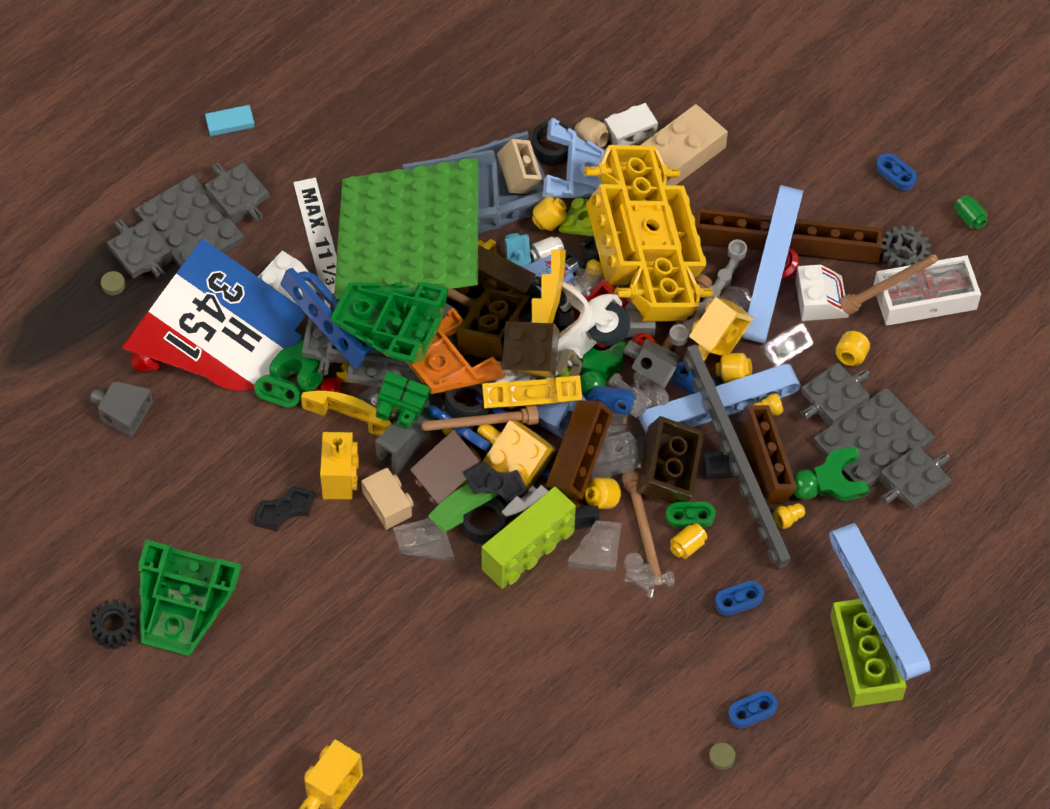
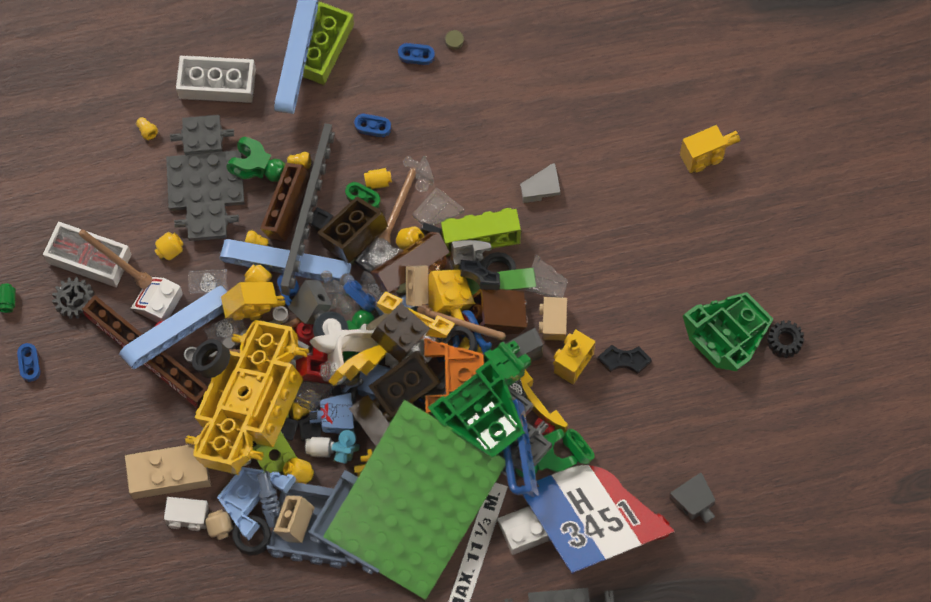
camera: 145 degrees left, 10 degrees up
(500, 640) = (541, 185): none -> light grey slope
(553, 428) = (416, 285): none -> tan panel
(557, 167) = (269, 499): none -> sand blue hinge
(721, 239) = (218, 365): none -> black tyre
(950, 541) = (216, 79): none -> white brick
(980, 454) = (146, 128): none -> yellow piece

